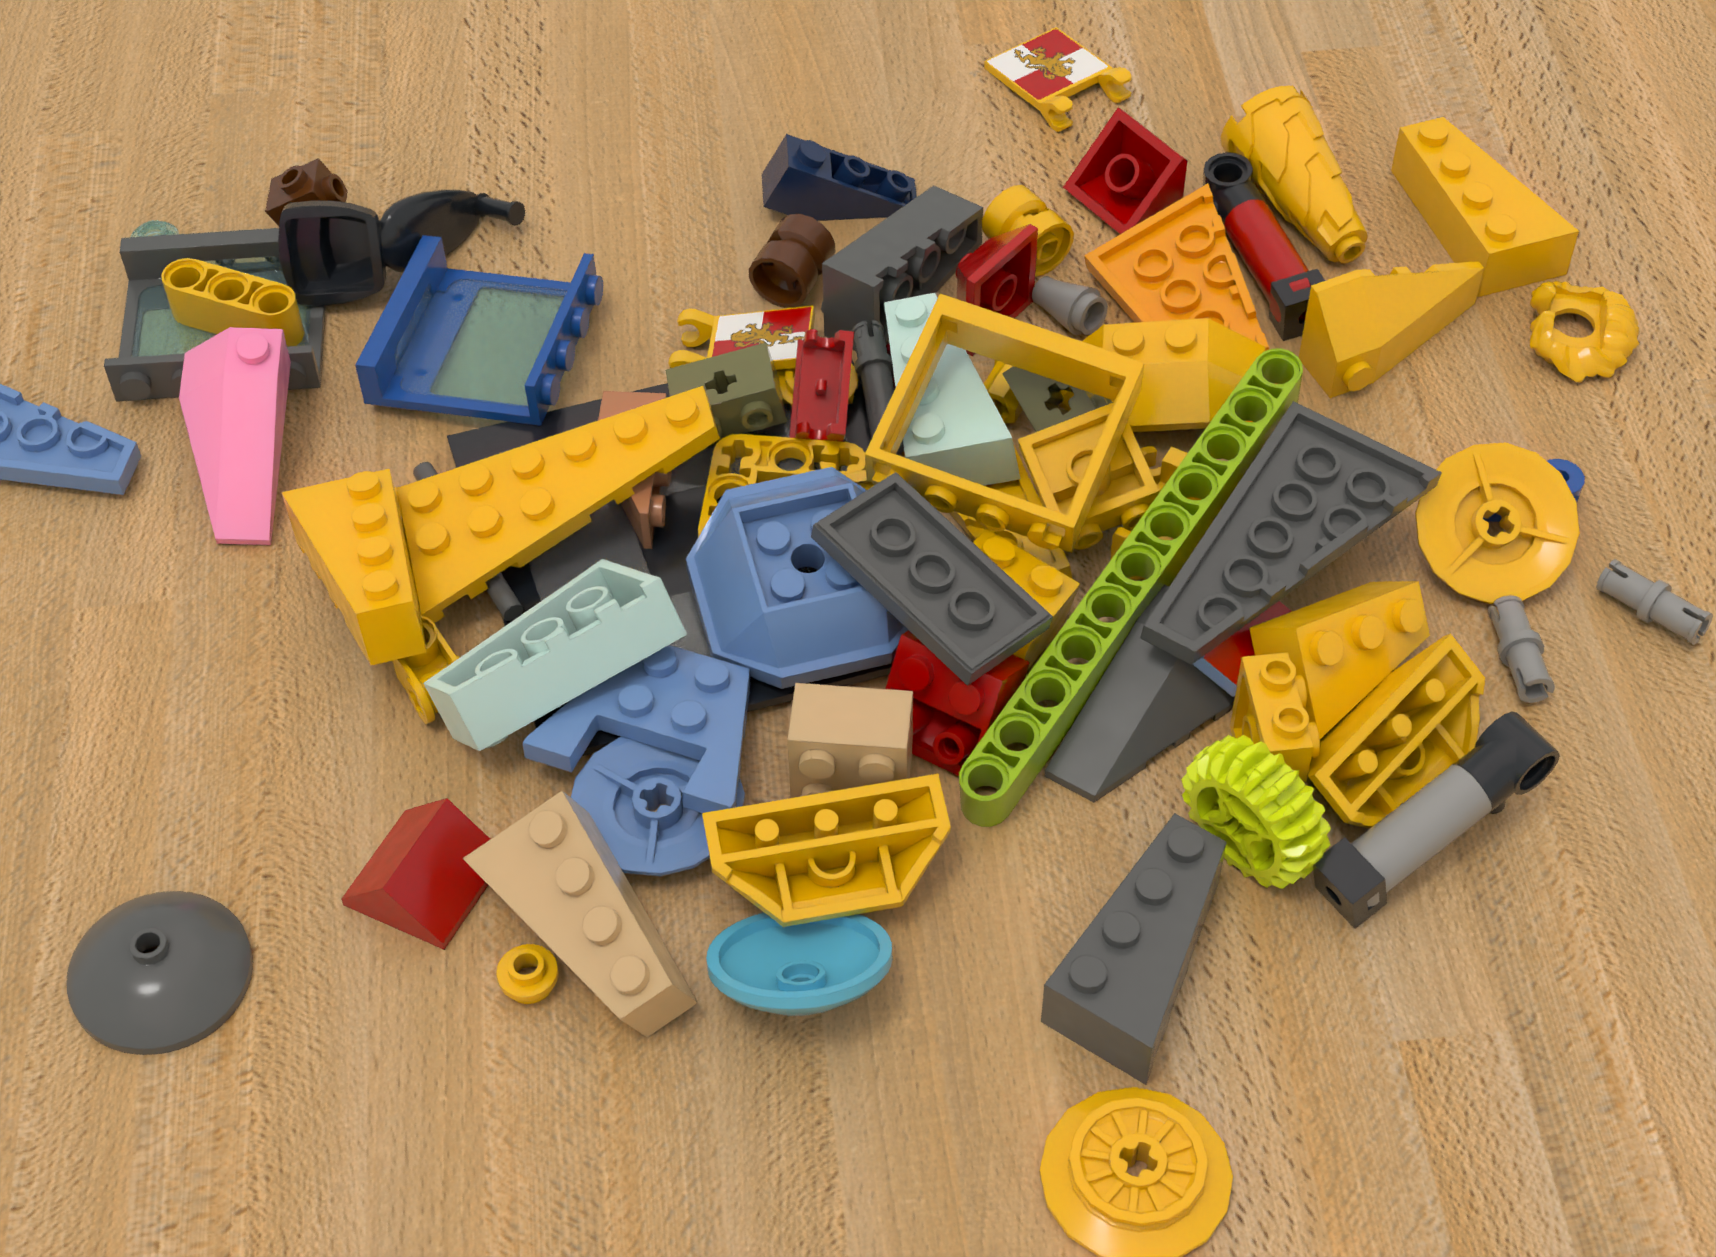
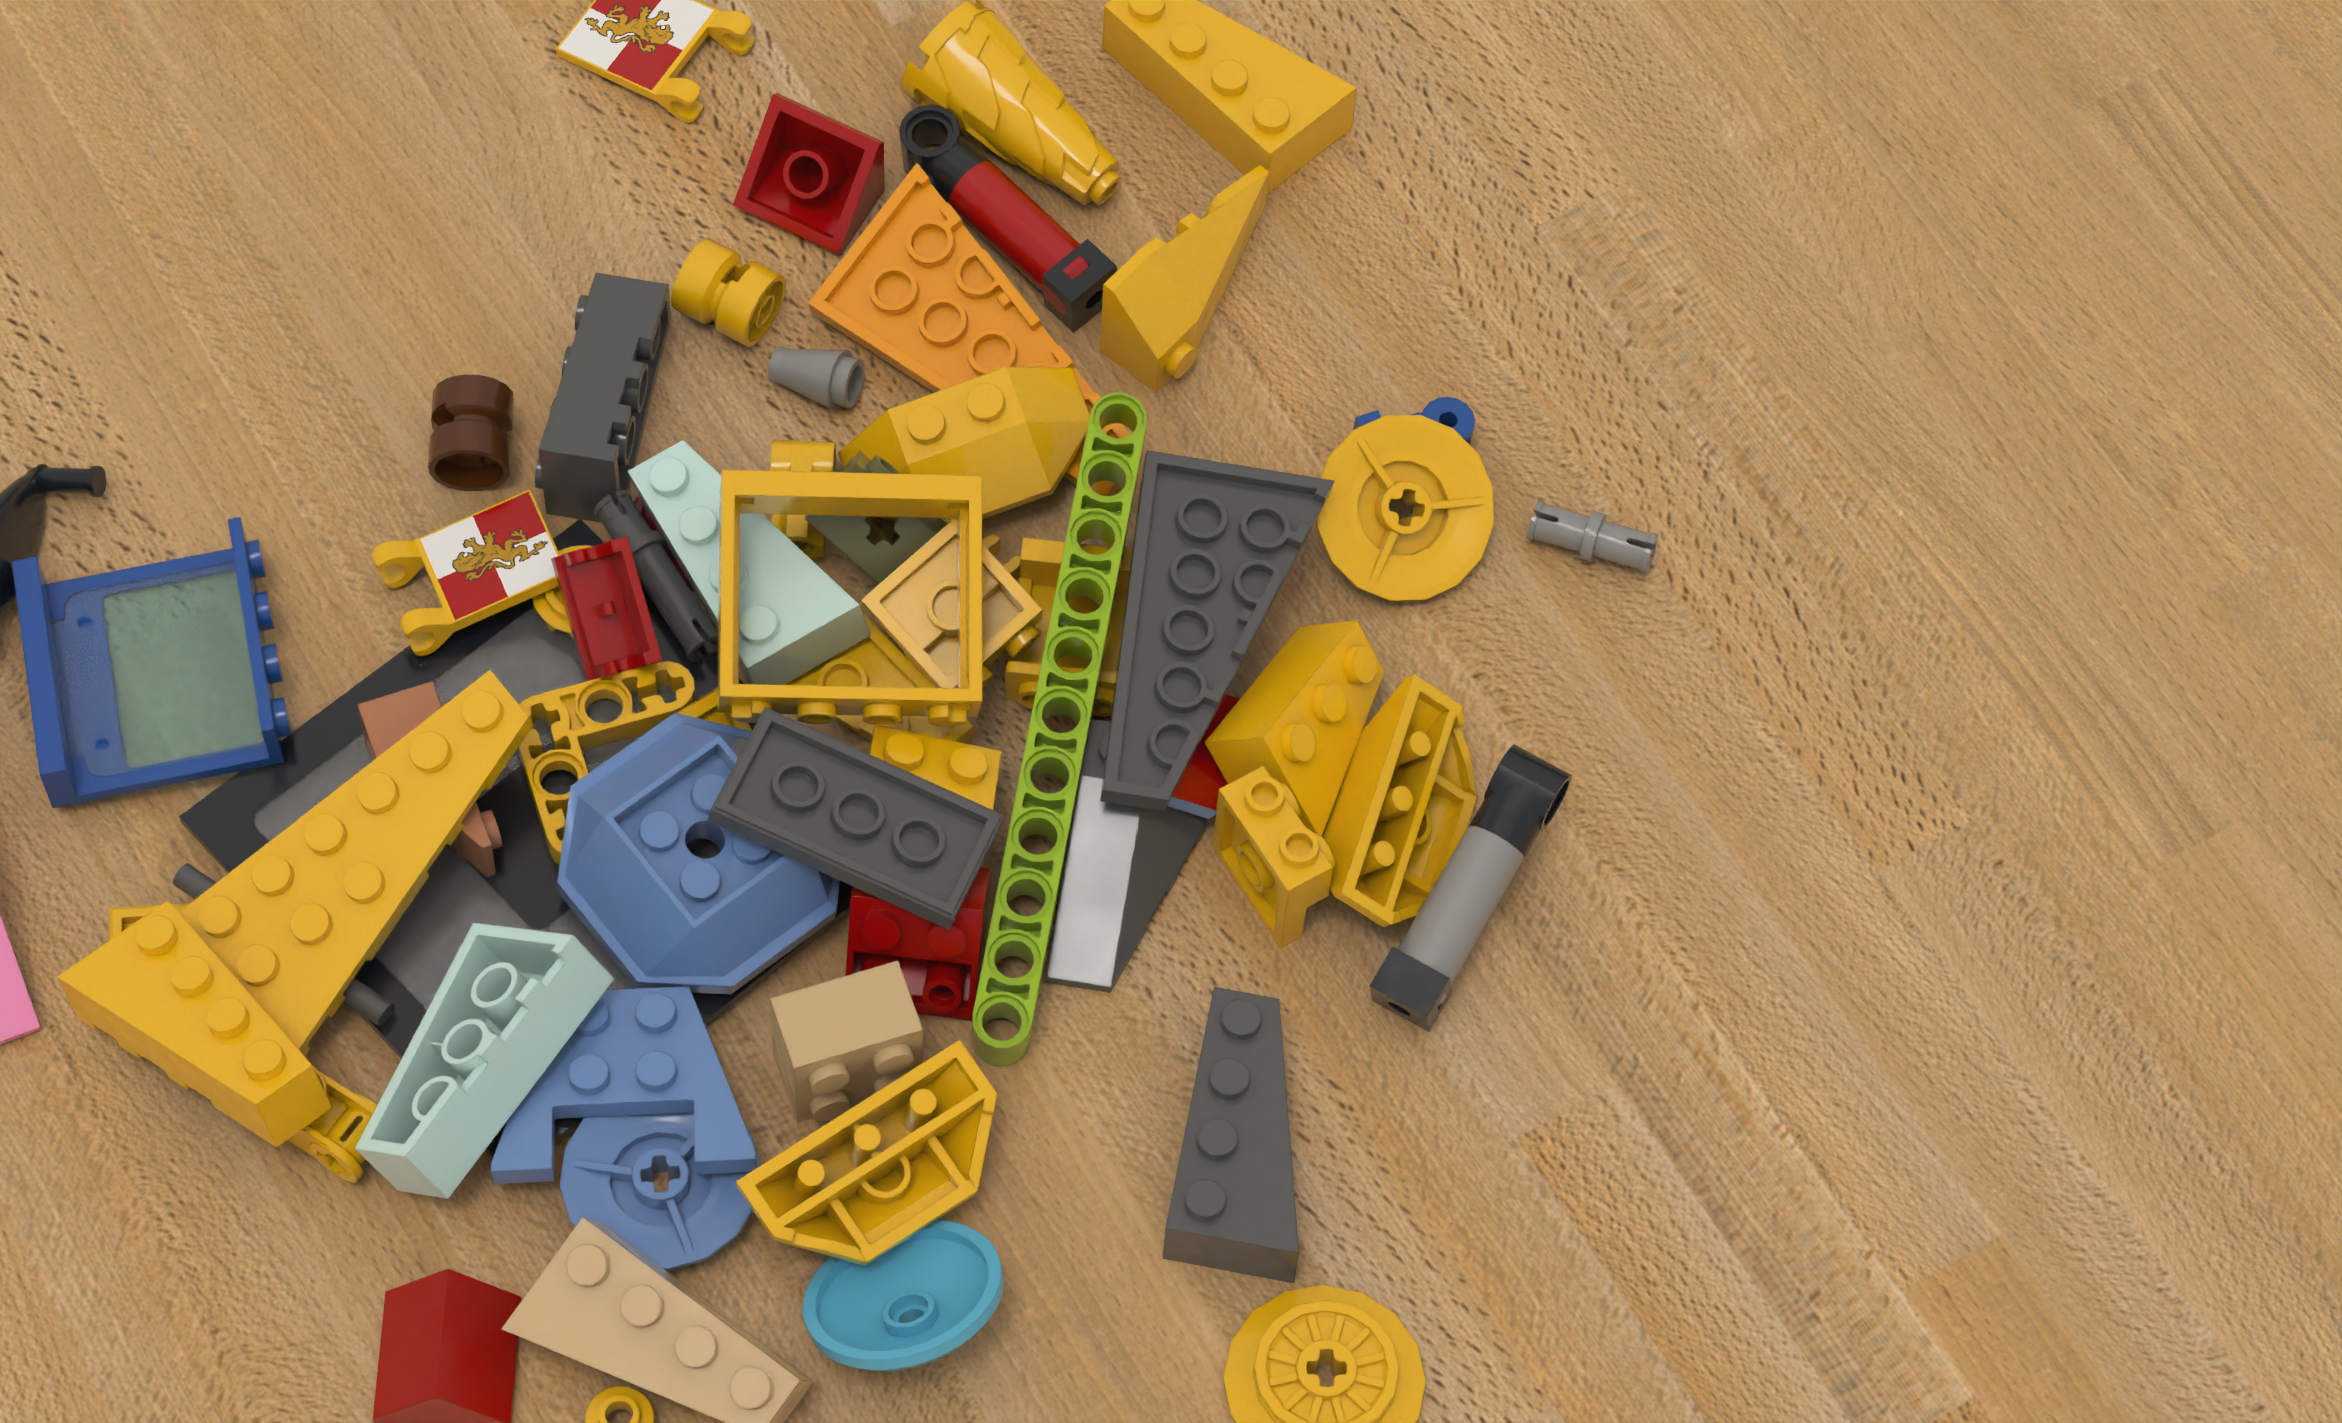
camera: 30 degrees left, 10 degrees up
(739, 386) = (507, 625): olive brick -> none
(831, 184) = (458, 306): dark blue slope -> none
(1000, 273) = (722, 383): red slope -> none
(1258, 809) = (1293, 951): neon yellow gear -> none
(1521, 649) = (1478, 646): light grey pin -> none
(1600, 352) = (1433, 199): yellow piece -> none

